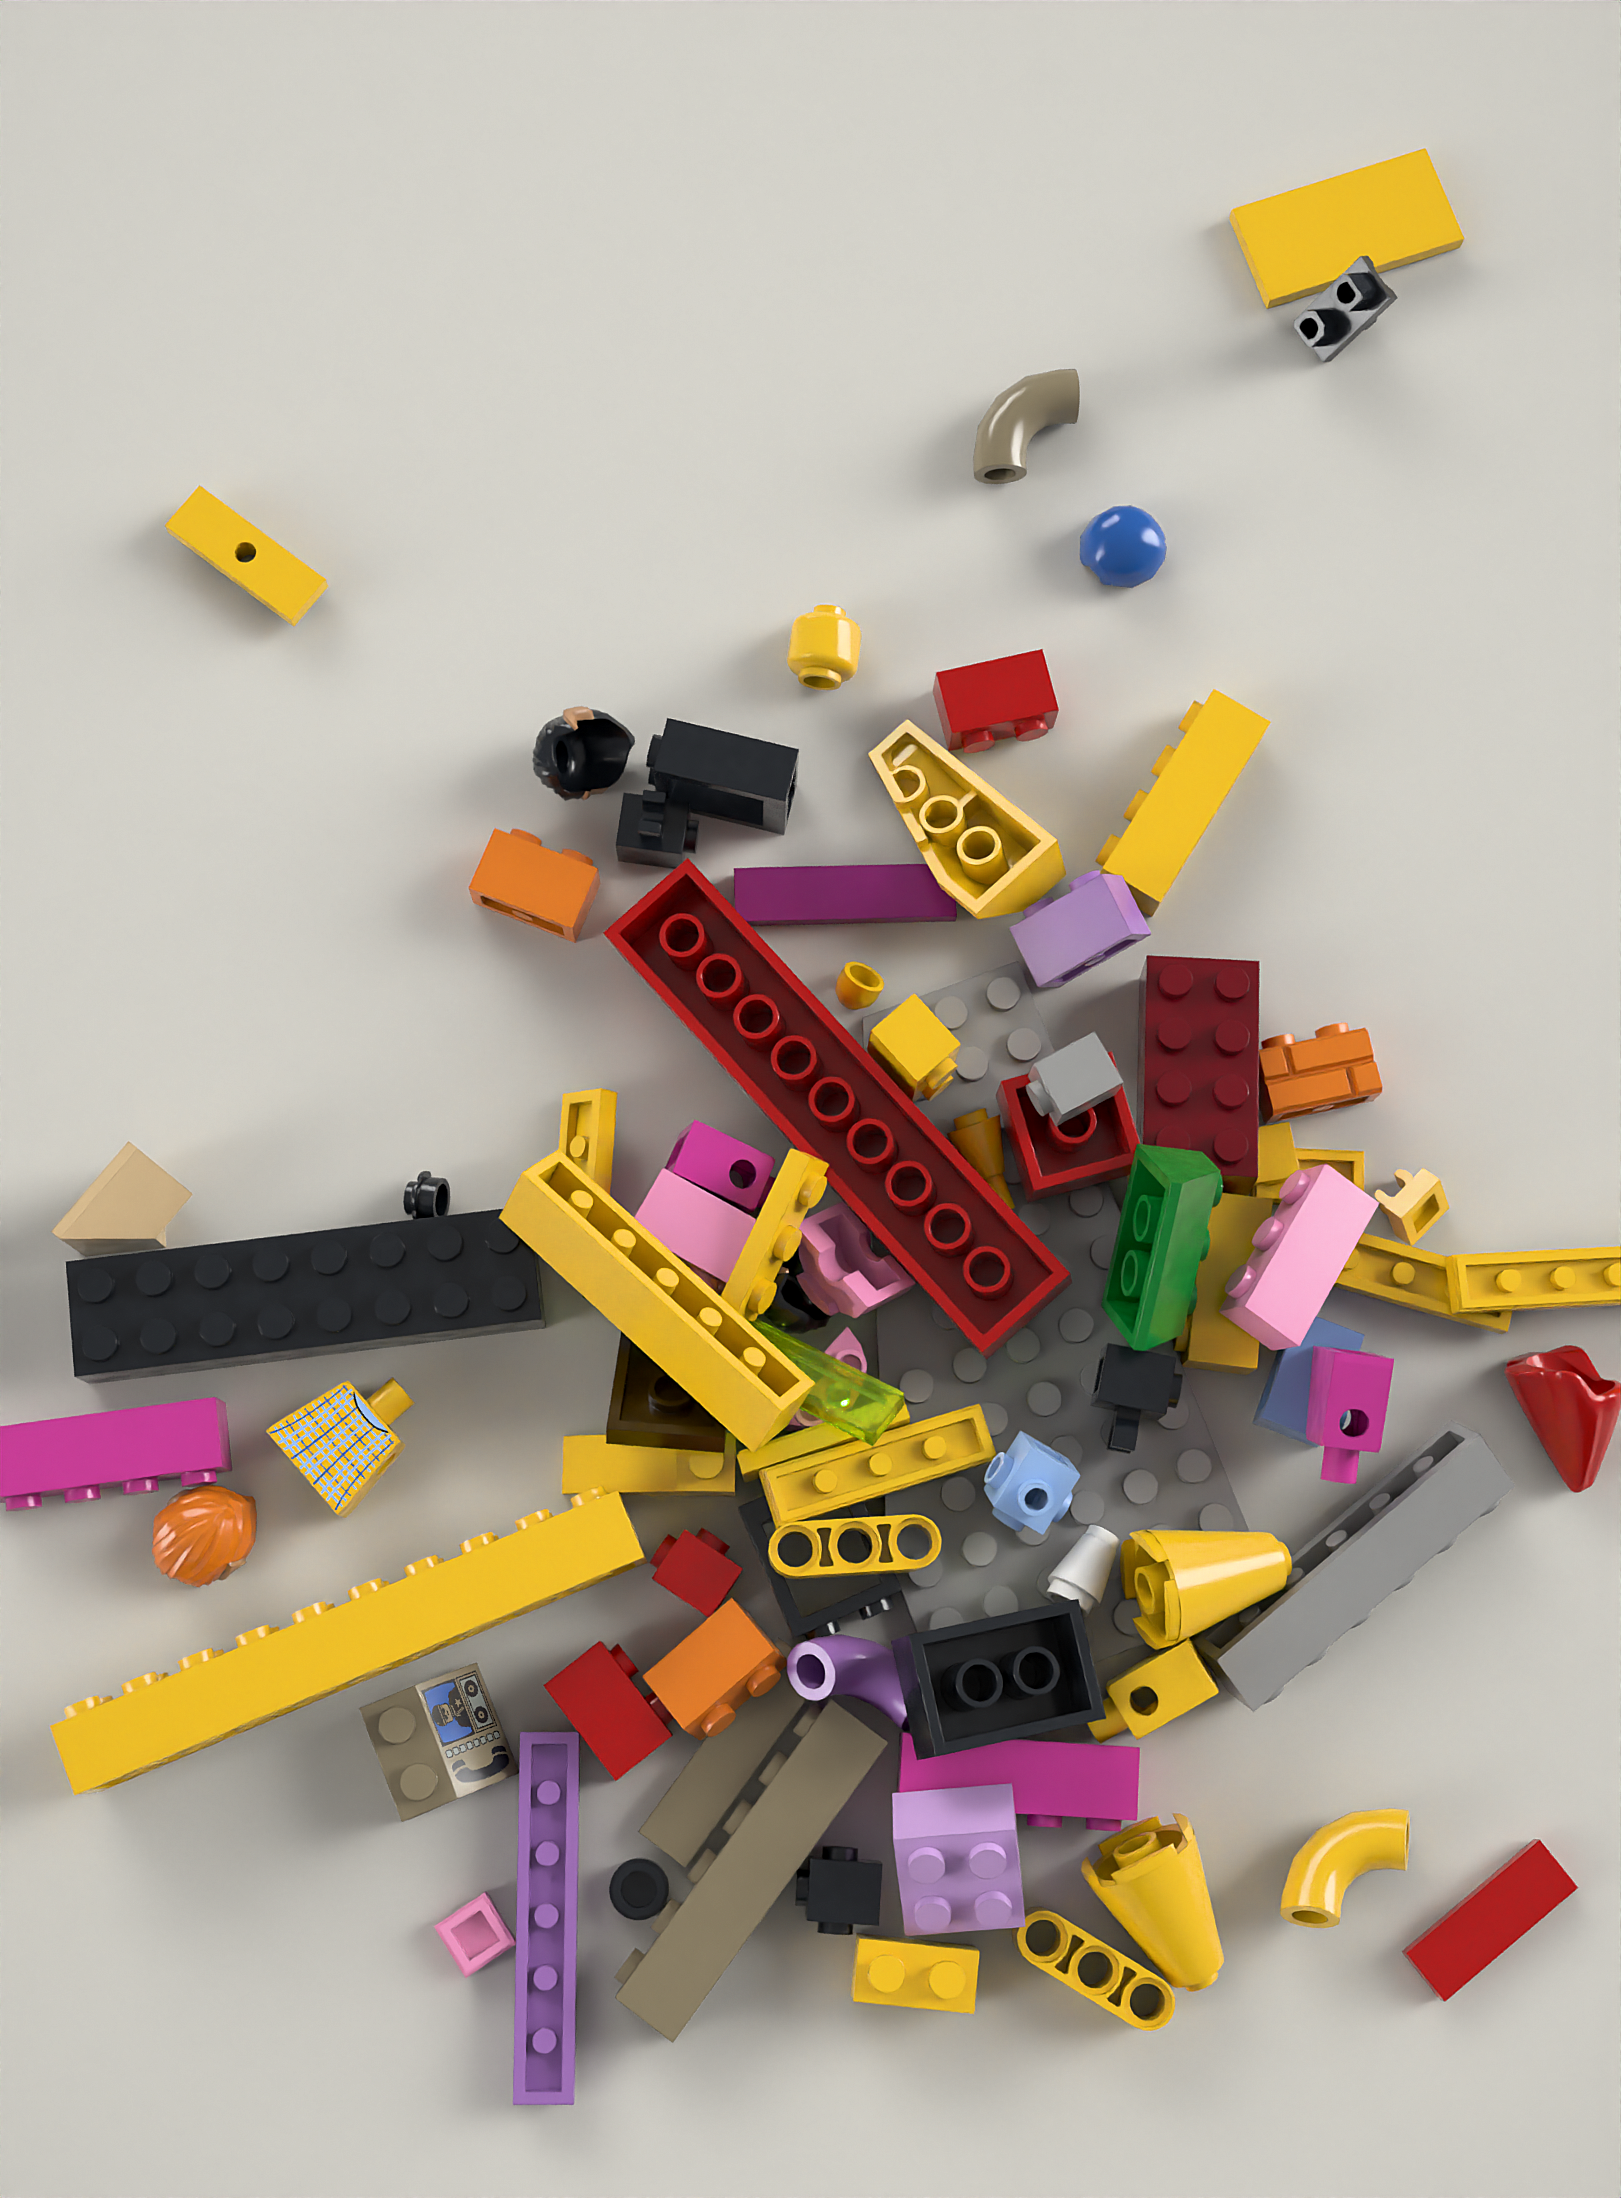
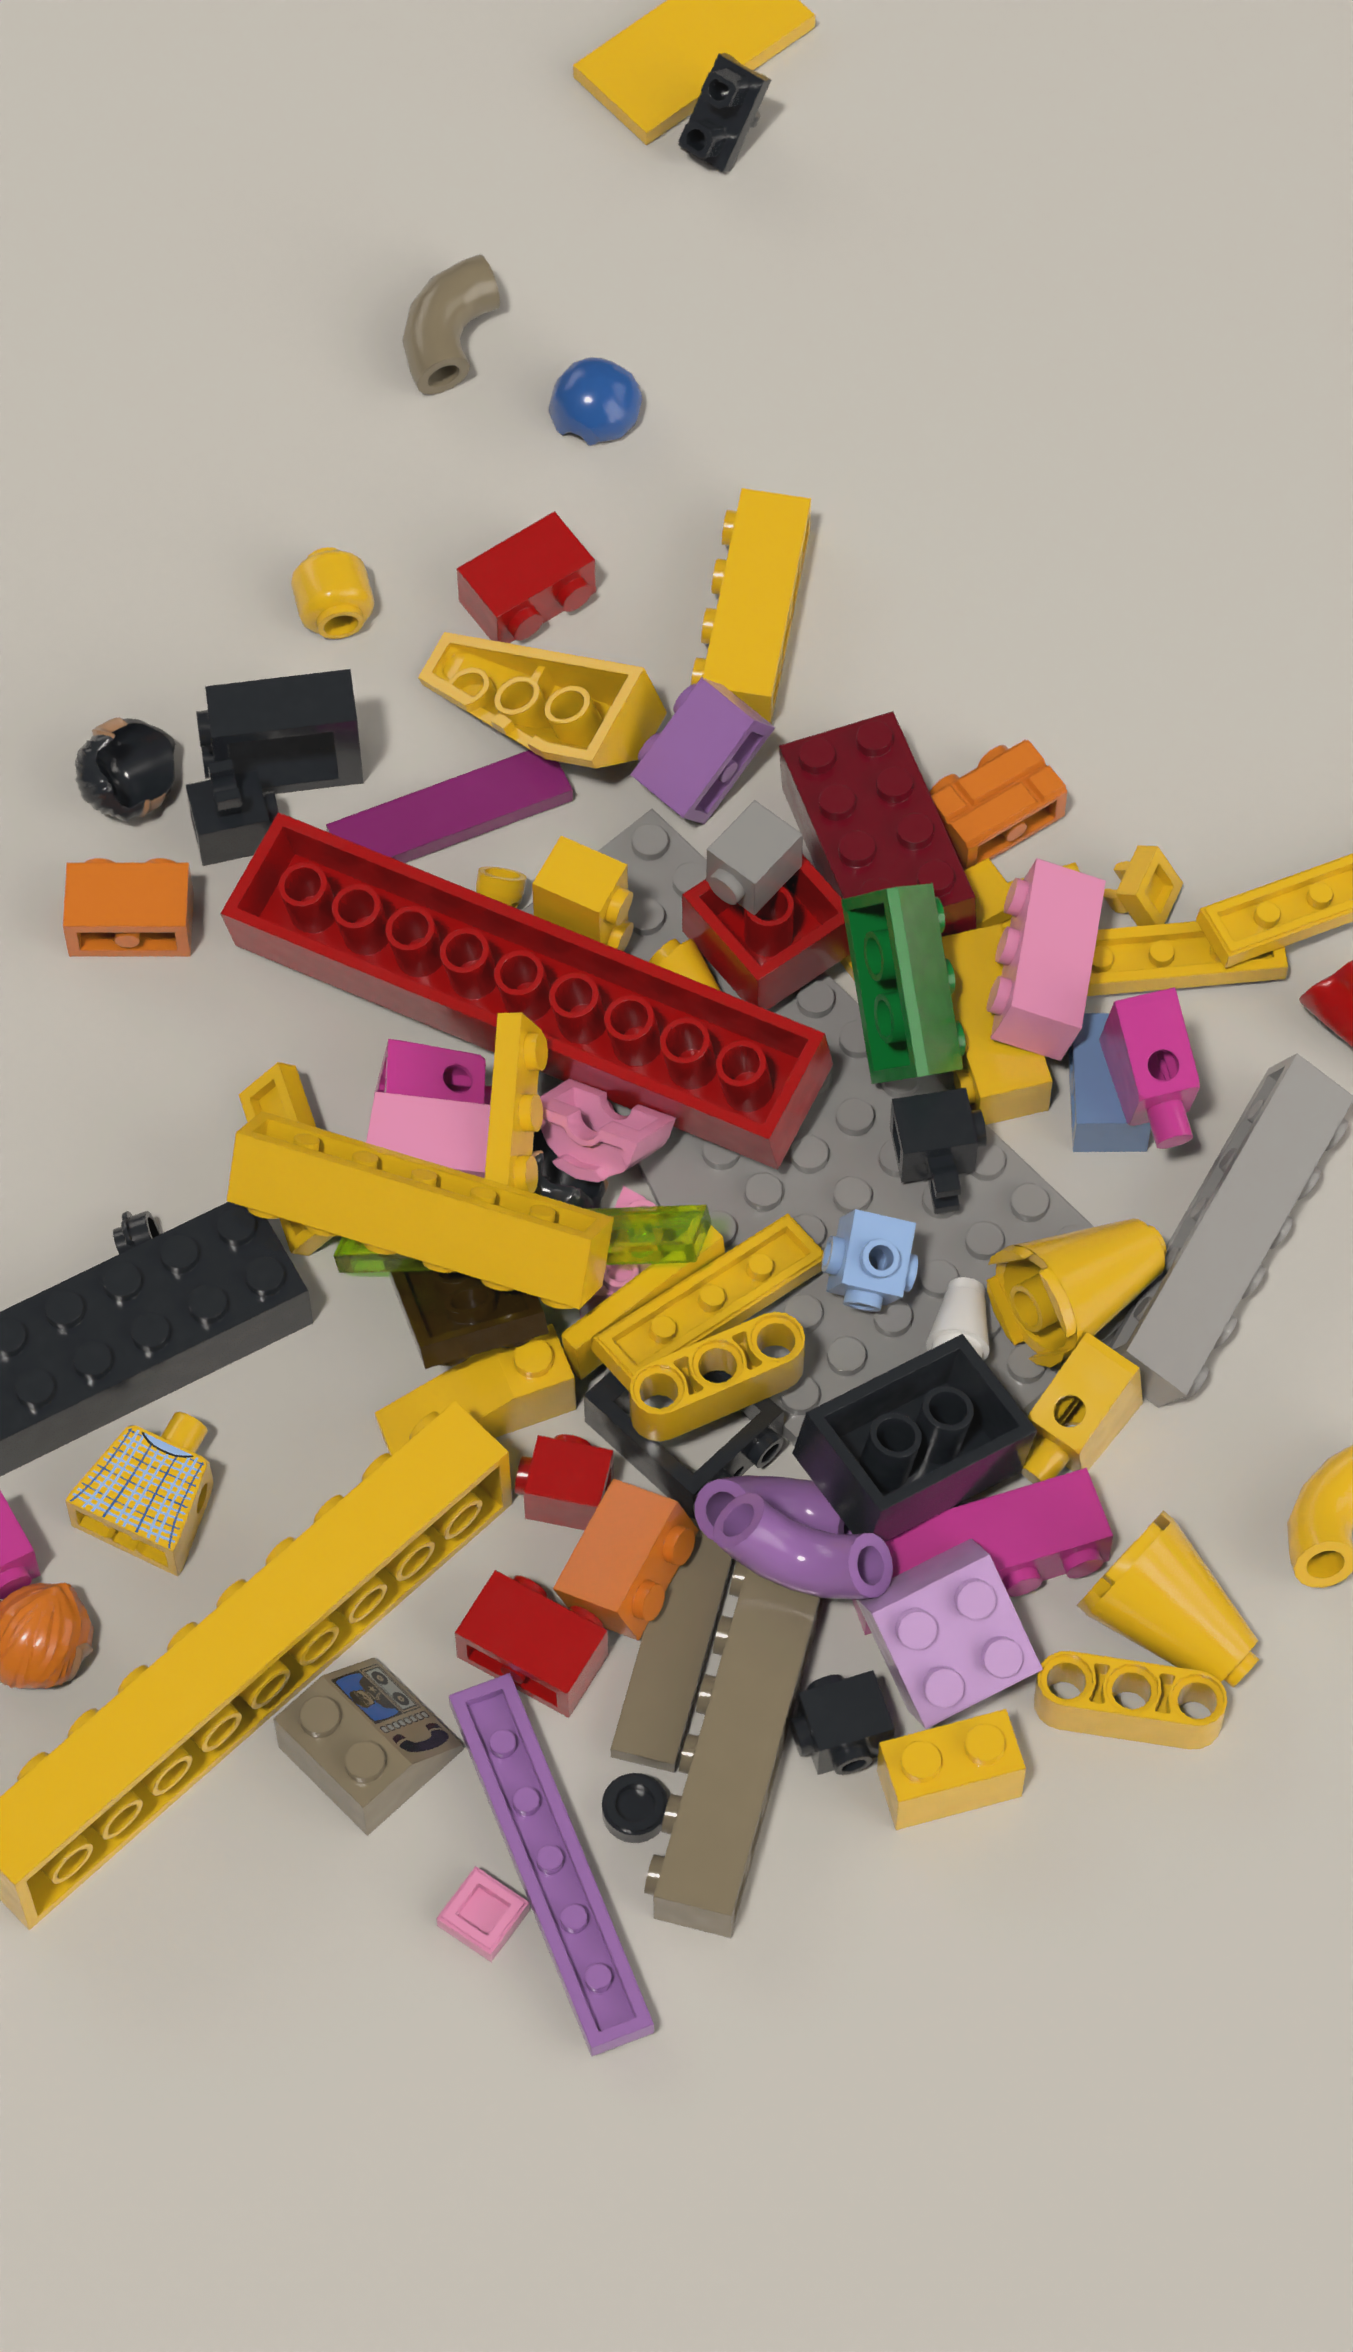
camera: 15 degrees left, 15 degrees down
(860, 1746) = (800, 1555): none -> medium lavender cylinder

